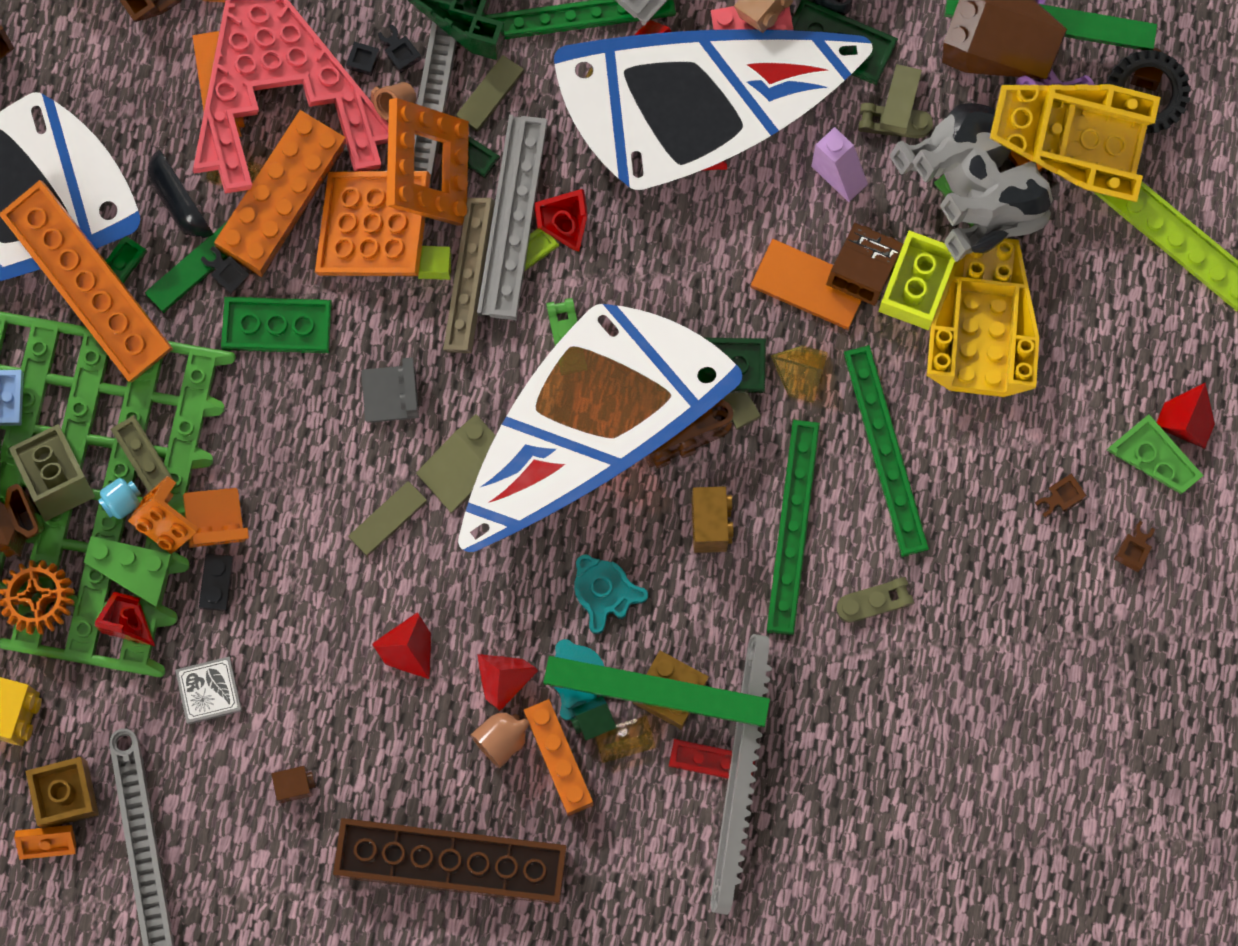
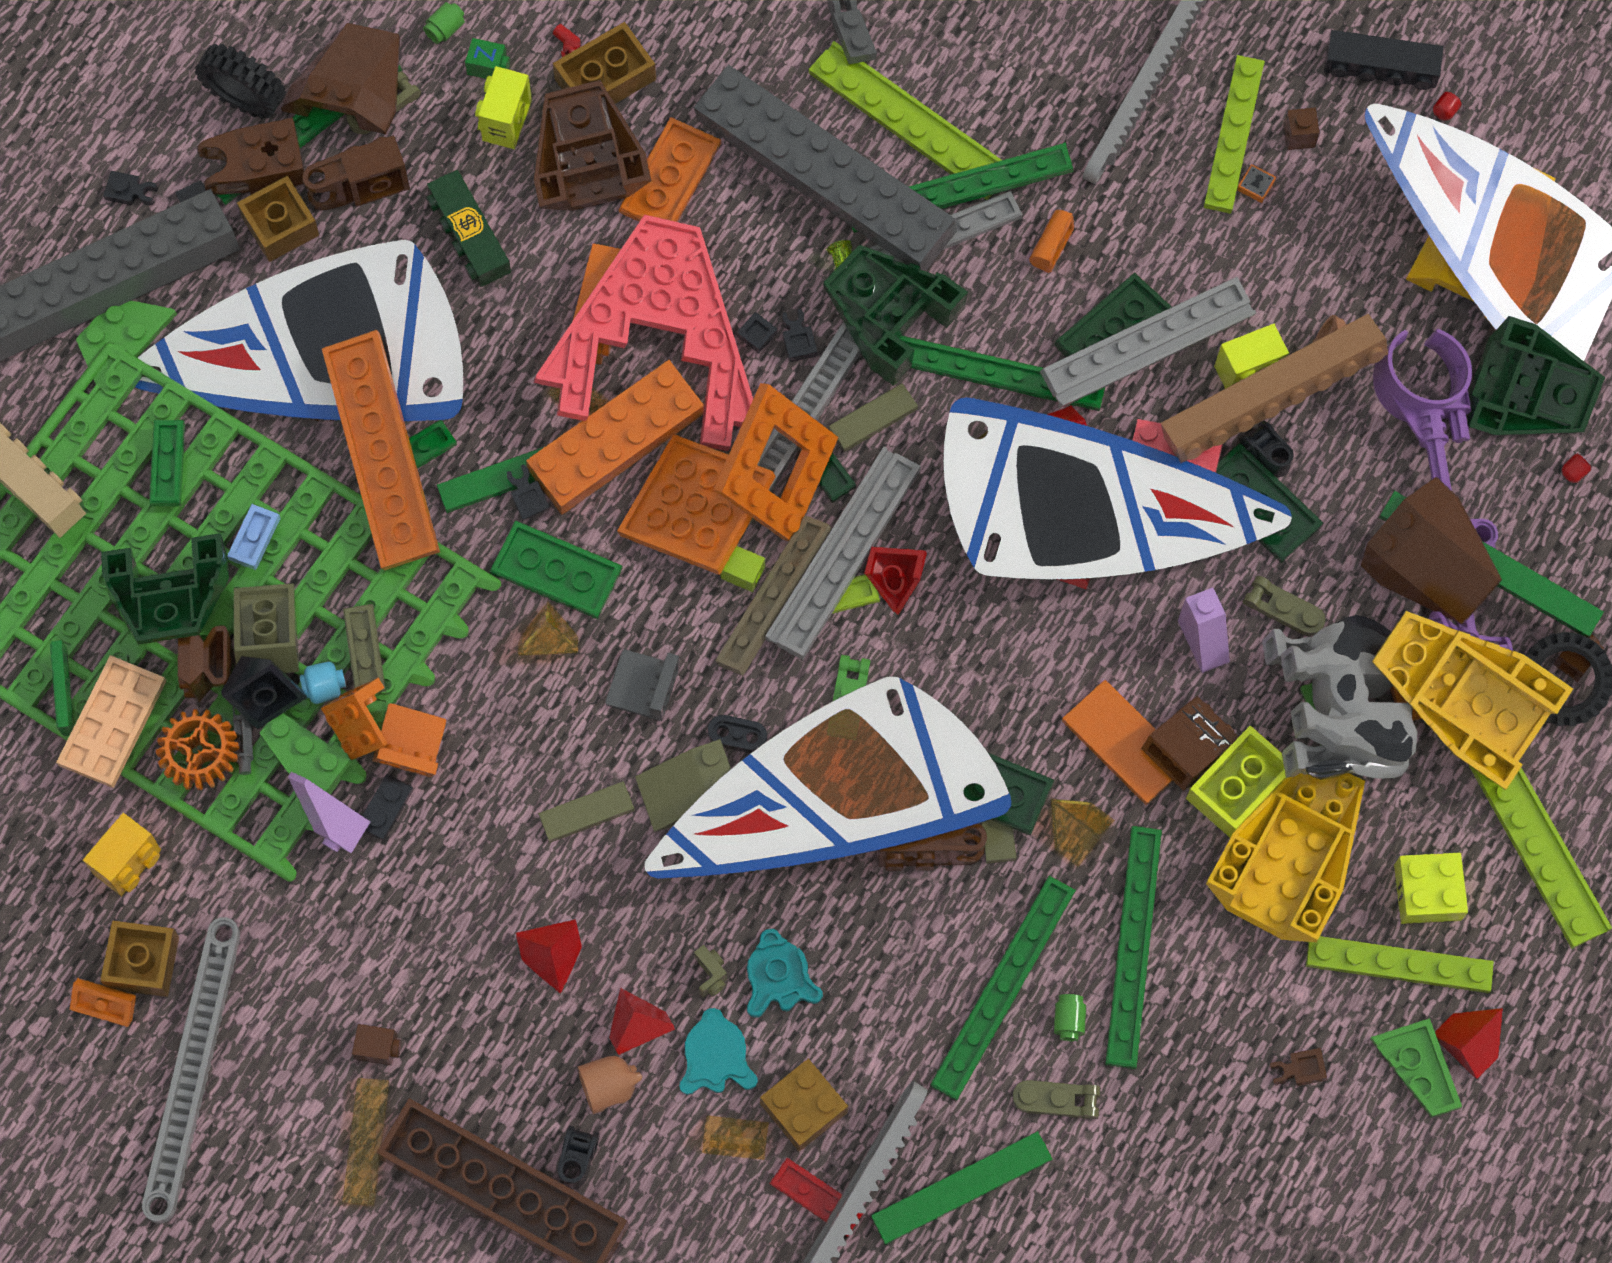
camera: 20 degrees right, 5 degrees down
(68, 564) = (243, 728): none -> dark grey piece
(70, 526) = (261, 690): none -> black slope
(79, 62) = (468, 228): none -> dark green brick
(124, 619) = (276, 807): red slope -> none
(173, 609) = (328, 816): none -> lavender slope
(176, 197) = (508, 400): black brick -> none
(208, 690) = (331, 914): tile -> none
(293, 382) = (548, 635): none -> clear yellow slope
(318, 868) = (365, 1141): none -> clear yellow tile
(381, 96) = (780, 380): nougat piece -> none
(487, 403) = (738, 730): none -> black plate
(500, 803) = (577, 1151): none -> black piece
(546, 604) = (712, 965): none -> olive bracket
(558, 757) = (658, 1128): orange brick -> none
(592, 718) = (710, 1102): dark green brick -> none
(656, 691) = (787, 1099): green tile -> none
(710, 519) = (916, 946): pearl gold brick -> none
(826, 705) = (961, 1188): none -> green tile
(858, 529) = (1070, 1017): none -> bright green brick
(900, 99) = (1299, 586): olive tile -> none
(1107, 306) = (1431, 888): none -> neon yellow brick
(1107, 379) = (1400, 964): none -> lime plate
(1134, 550) = (1356, 1155): reddish brown plate -> none

